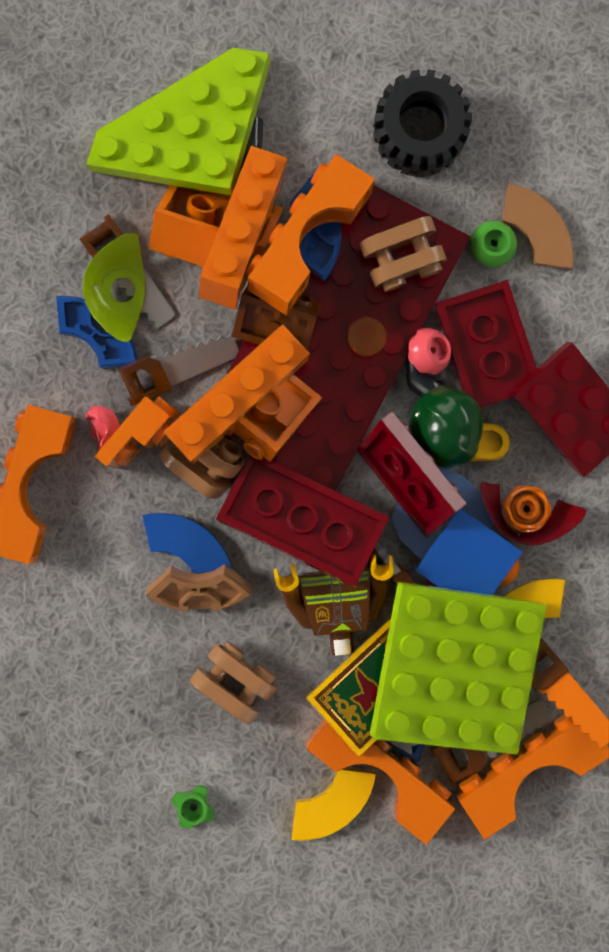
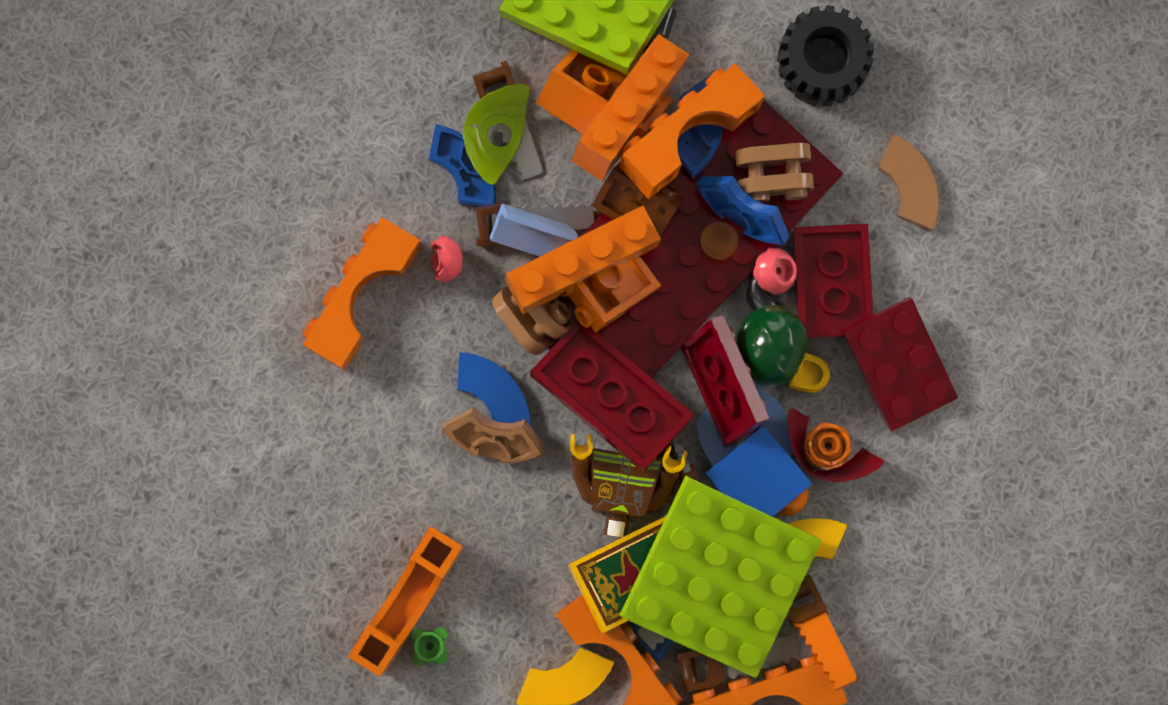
camera: 20 degrees right, 5 degrees down
(142, 426) = (485, 266): orange plate -> none
(157, 775) = (406, 602): none -> orange arch
(179, 378) = (529, 231): none -> light blue panel
(229, 660) = (504, 512): medium nougat brick -> none
(400, 305) = (757, 219): none -> blue tile
(486, 253) = (856, 195): bright green plate -> none

